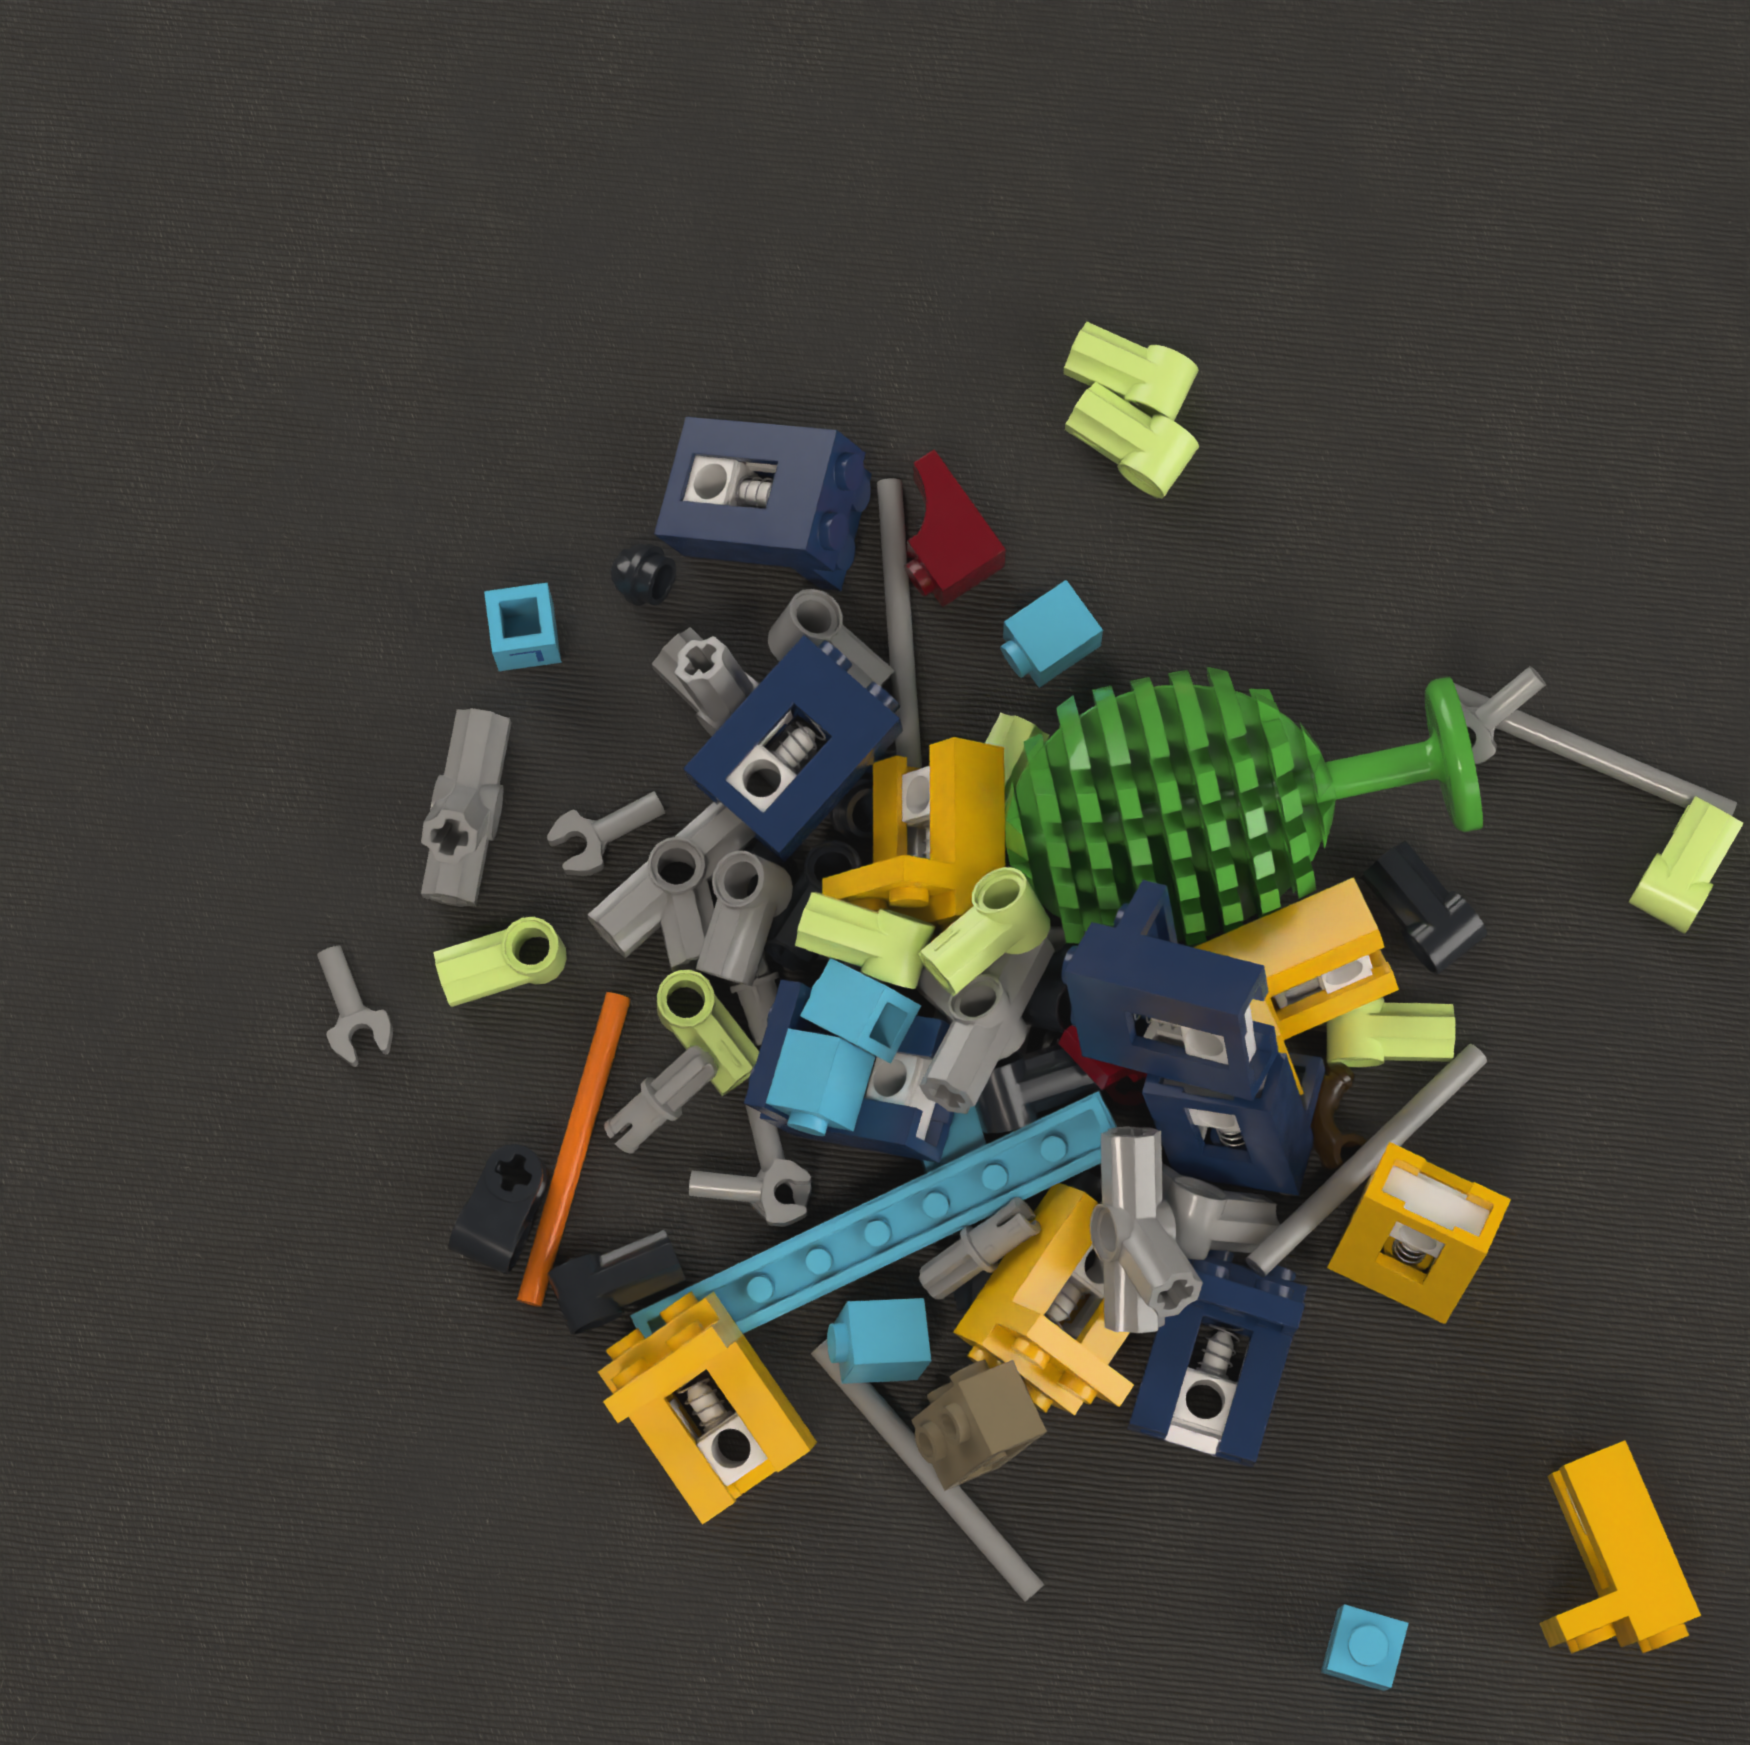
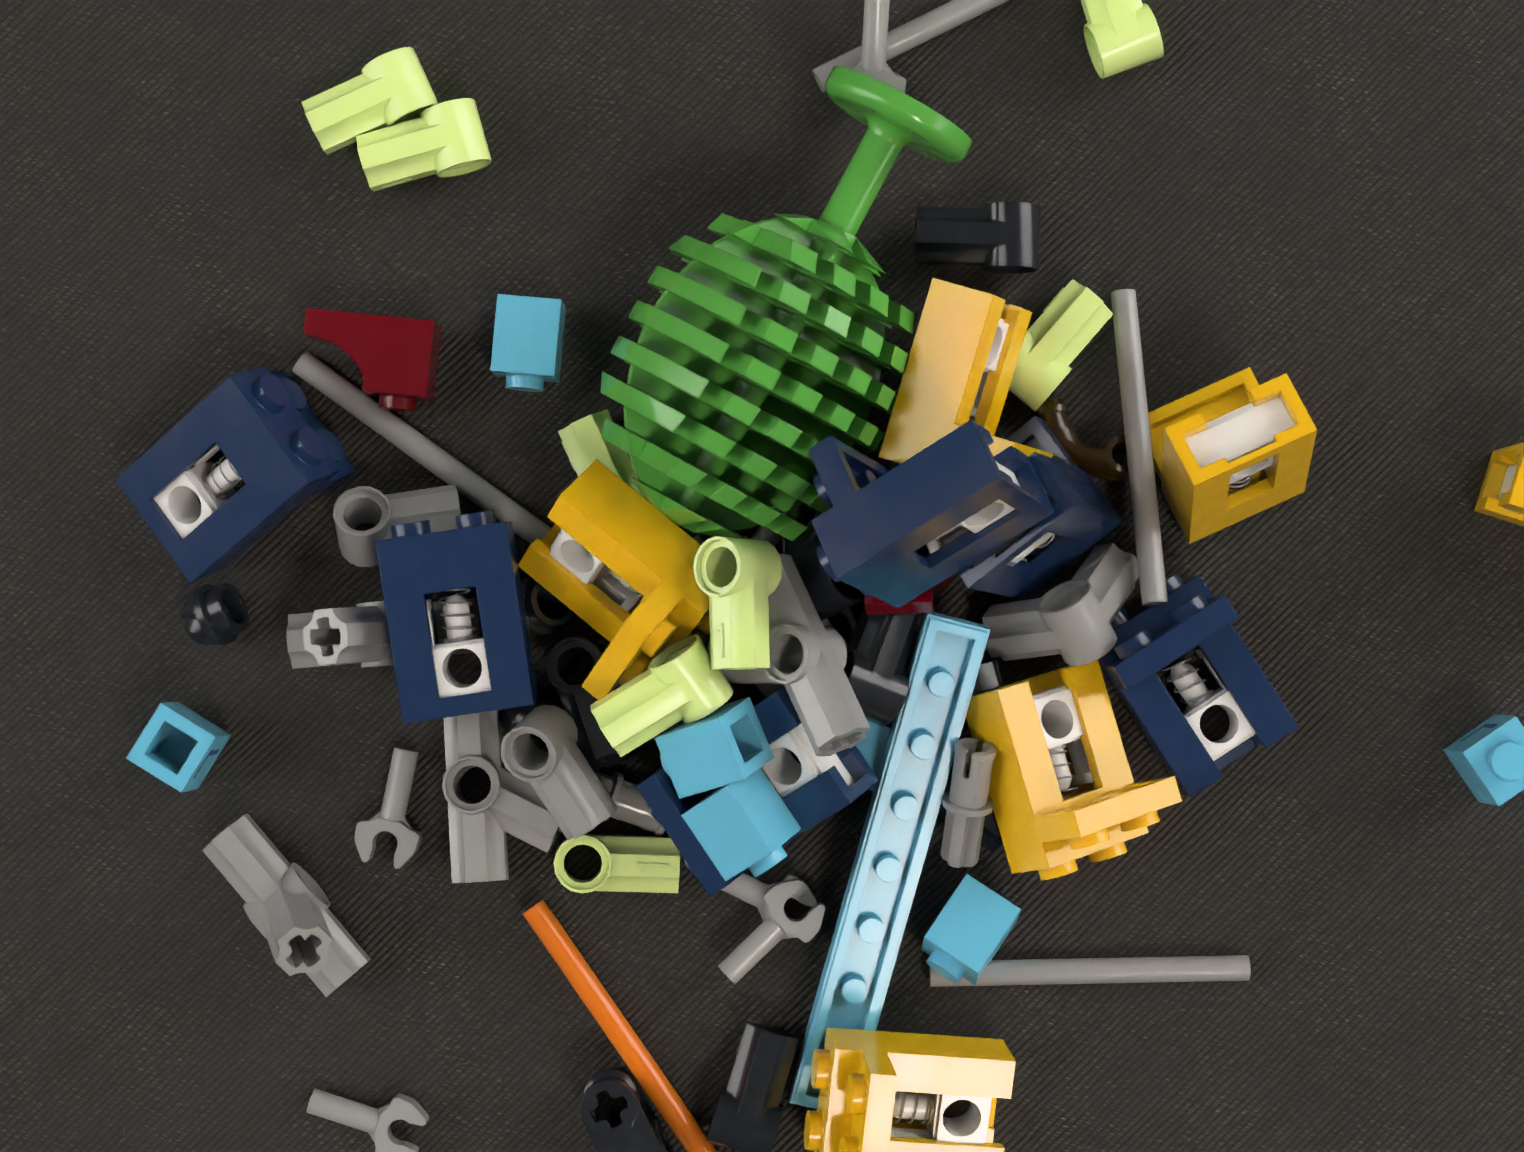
camera: 50 degrees left, 10 degrees up
(493, 962) = (429, 982): yellowish green piece -> none
(662, 1098) = (643, 943): light grey axle -> none
(976, 1422) = (1097, 914): dark tan brick -> none
(1137, 1235) = (1065, 680): light grey piece -> none

